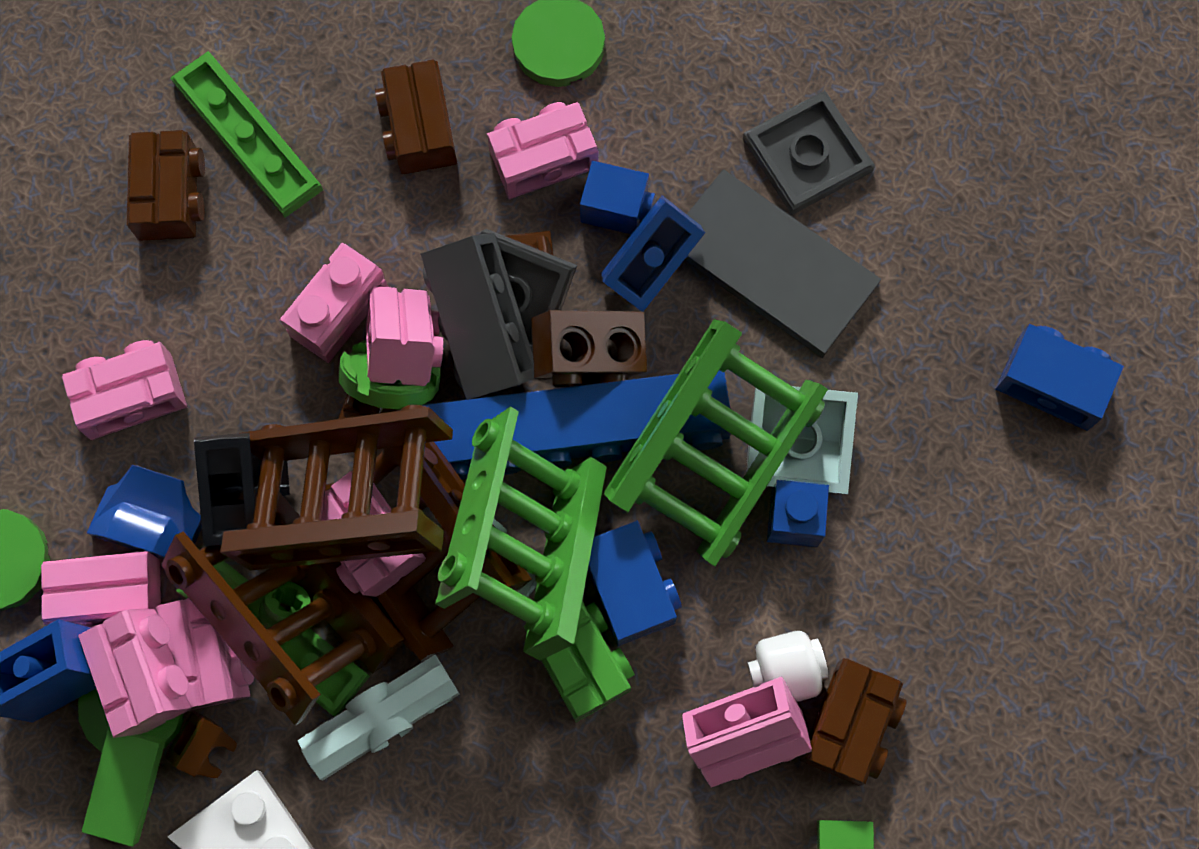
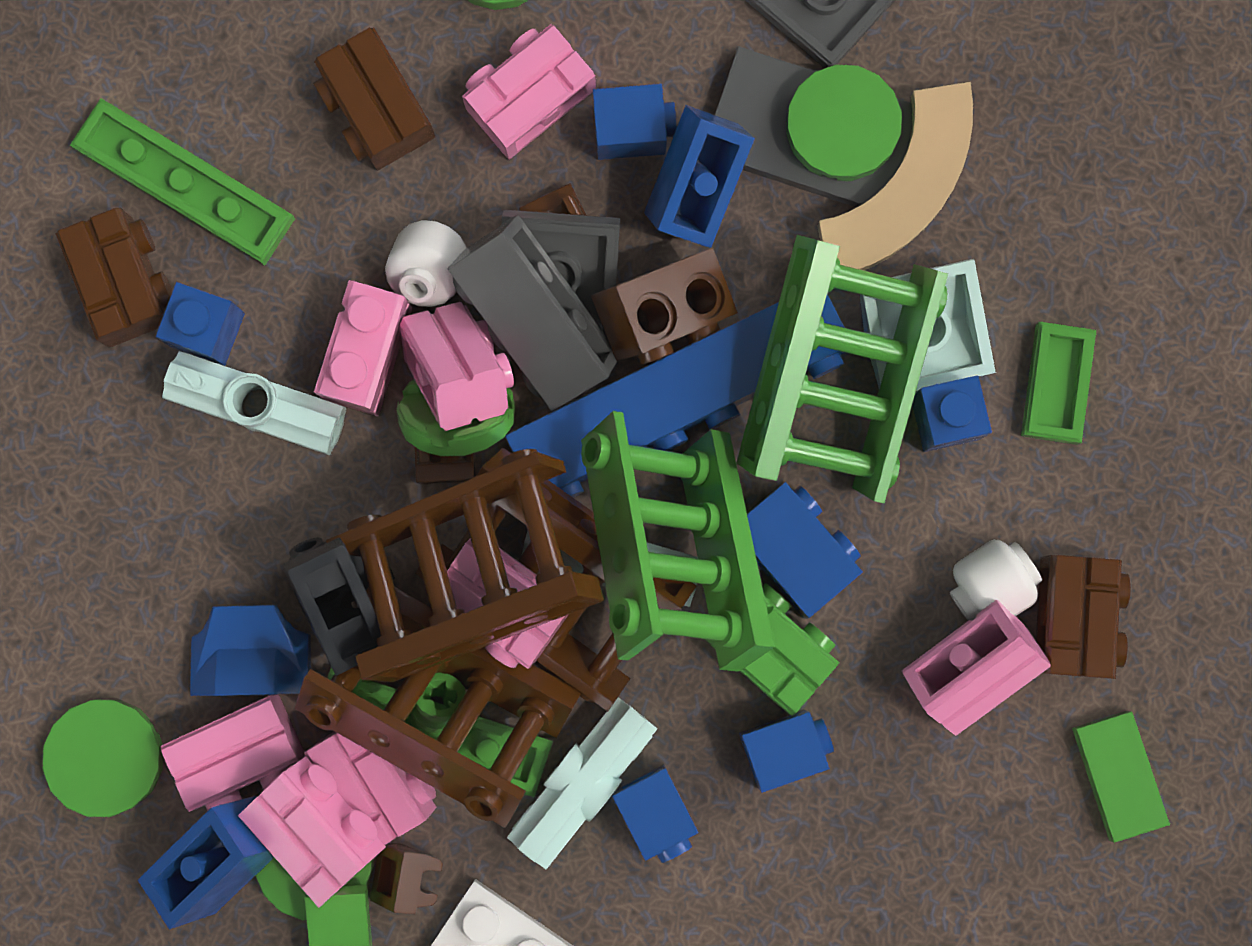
camera: 20 degrees left, 10 degrees up
(123, 389) = (166, 524): bright pink brick -> none
(212, 300) = (221, 393): none -> light aqua piece
(213, 241) = (200, 324): none -> blue brick
(400, 248) = (421, 263): none -> white head
(430, 766) = (656, 815): none -> blue brick
(561, 749) = (787, 750): none -> blue brick
(787, 252) = (843, 122): none -> bright green tile
(831, 322) = (918, 189): none -> tan tile
(899, 522) = (1058, 383): none -> bright green tile
(1060, 376) = (1182, 164): blue brick -> none

